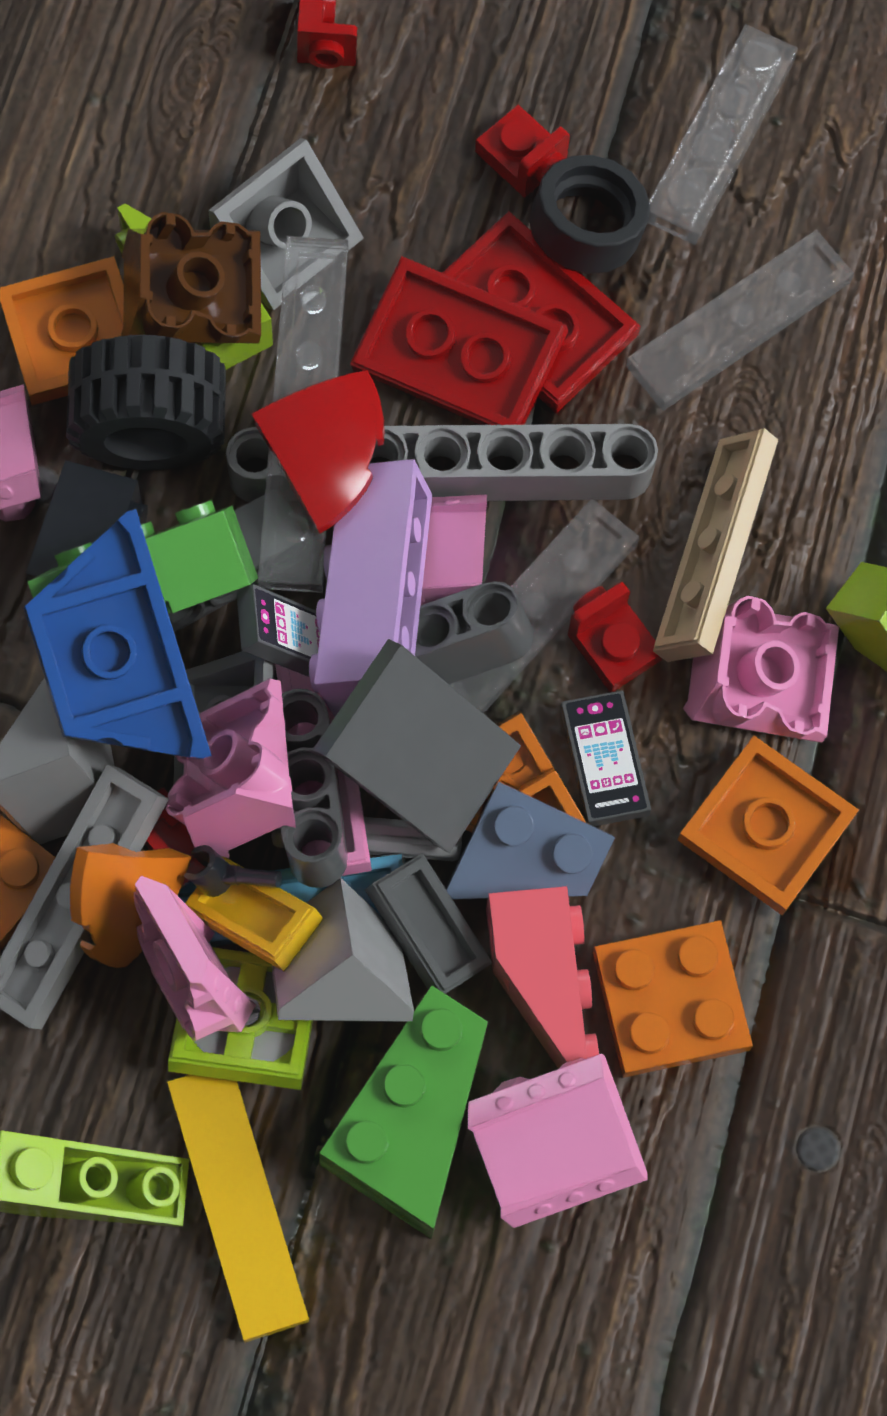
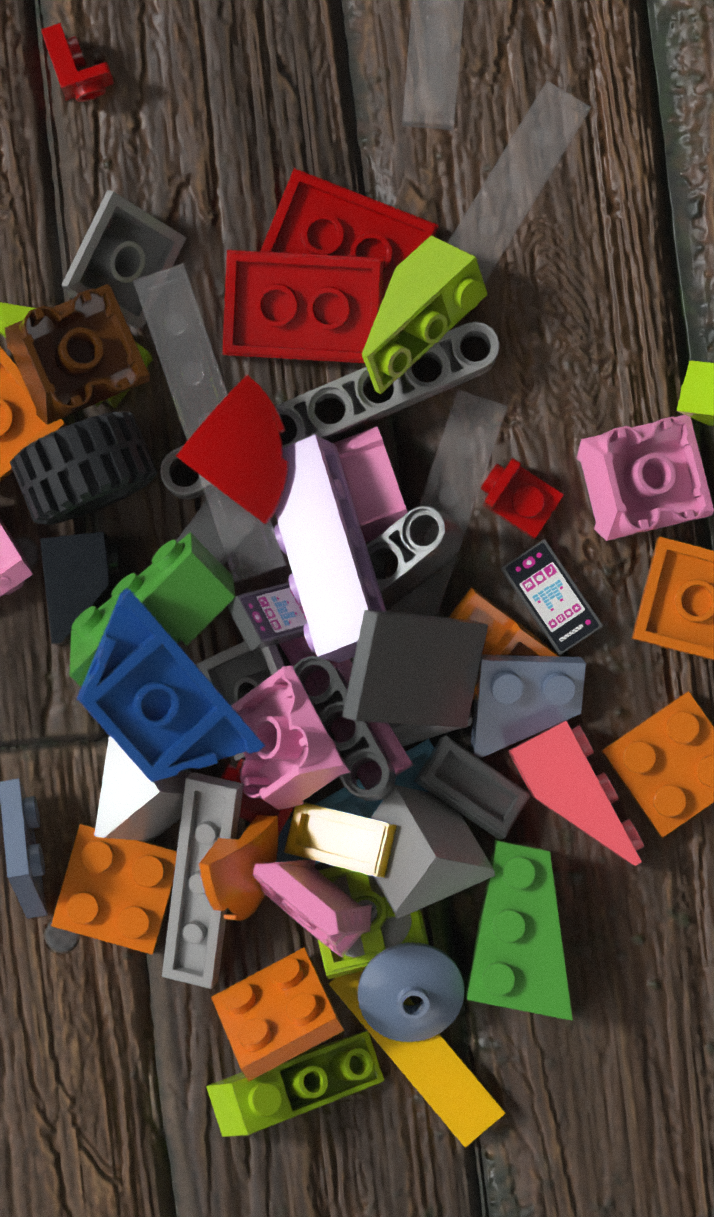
camera: 10 degrees left, 15 degrees up
(91, 1083) = (276, 1014): none -> orange plate
(221, 875) = (306, 820): black hand -> none
(266, 1091) = (407, 972): none -> sand blue dish
(522, 149) = (284, 107): red bracket -> none
(555, 1140) = (632, 915): bright pink slope -> none
(585, 386) = (420, 306): none -> lime slope
(599, 180) = (368, 111): black tyre -> none
(715, 546) = (571, 392): tan tile -> none

